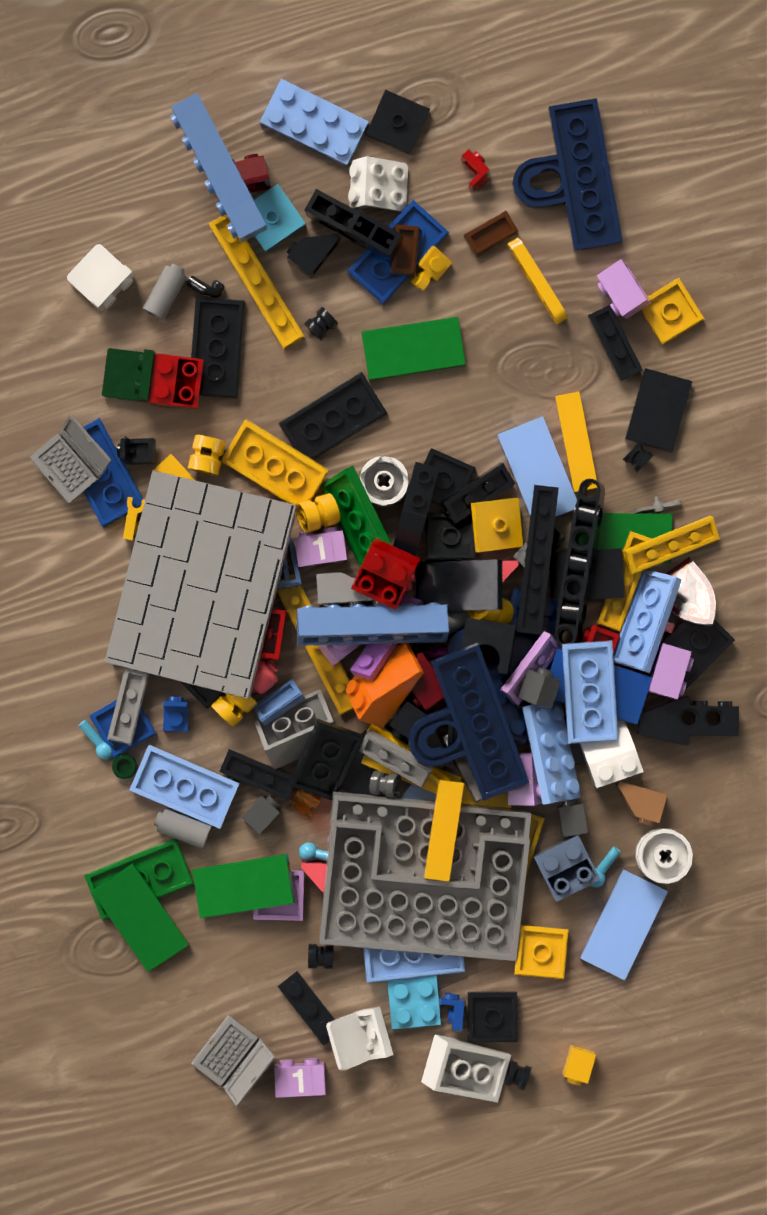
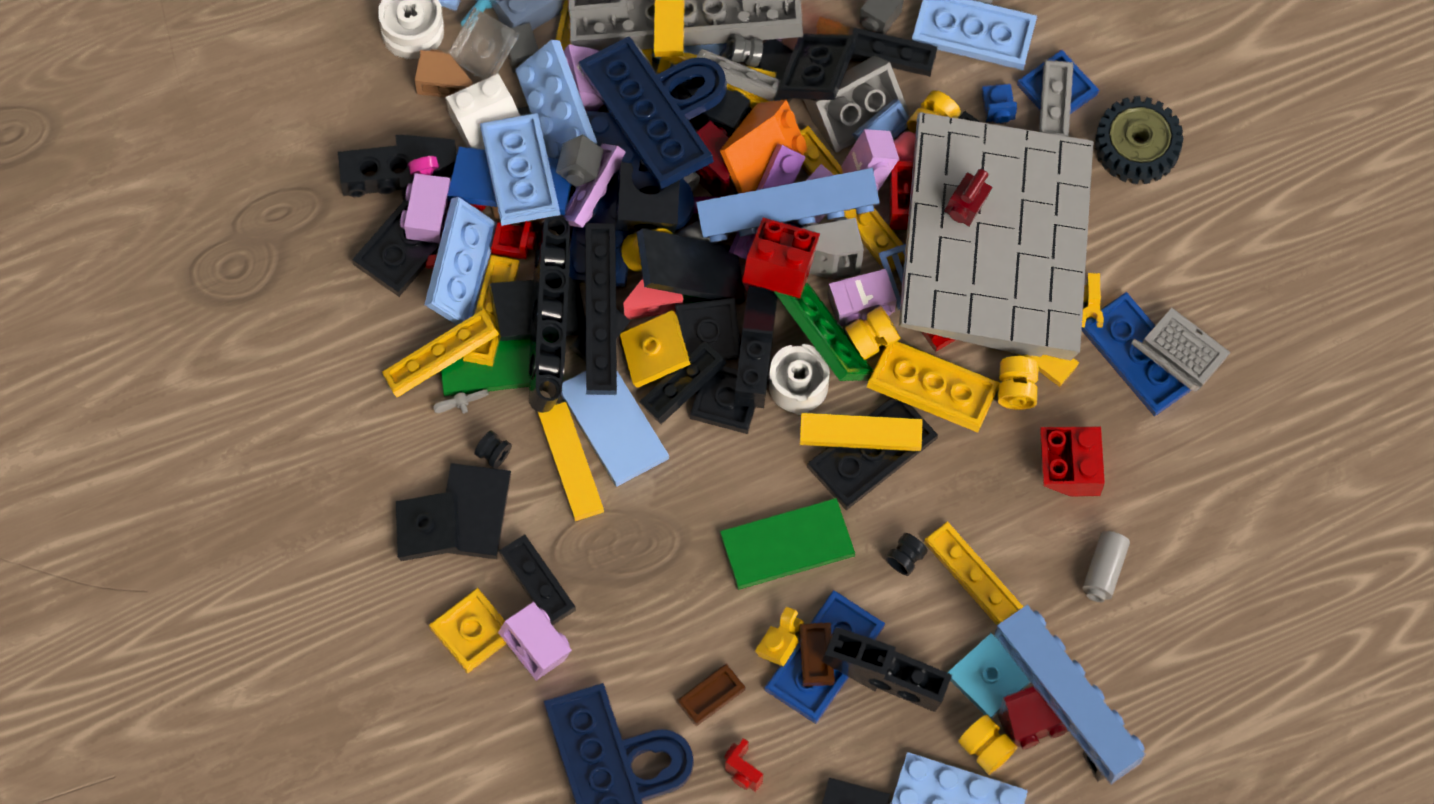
camera: 170 degrees right, 20 degrees down
(45, 667) = (1134, 159): none -> wheel
(100, 277) = (1187, 573): white bracket -> none
(102, 749) = (1077, 58): medium azure bar -> none
(124, 766) = (1046, 44): dark green tile -> none
(128, 374) = (1131, 465): dark green bracket -> none
(137, 450) = (1103, 378): black bracket -> none
(205, 289) = (1059, 577): black arm -> none
(218, 342) = (1028, 517): black tile -> none
(222, 606) = (969, 197): none -> dark red brick
(285, 160) = (988, 745): none -> yellow wheel
(295, 663) = (873, 150): none -> lavender brick
(312, 252) = (934, 635): black slope -> none
(340, 430) = (861, 432): none -> yellow tile
(378, 184) = (863, 730): white bracket -> none
(537, 281) = (645, 641): yellow beam -> none
(605, 822) = (483, 44): none -> clear tile
(669, 707) = (423, 165): none -> dark pink tile
(695, 596) = (403, 299): shield -> none
(697, 398) = (427, 526): none -> black plate

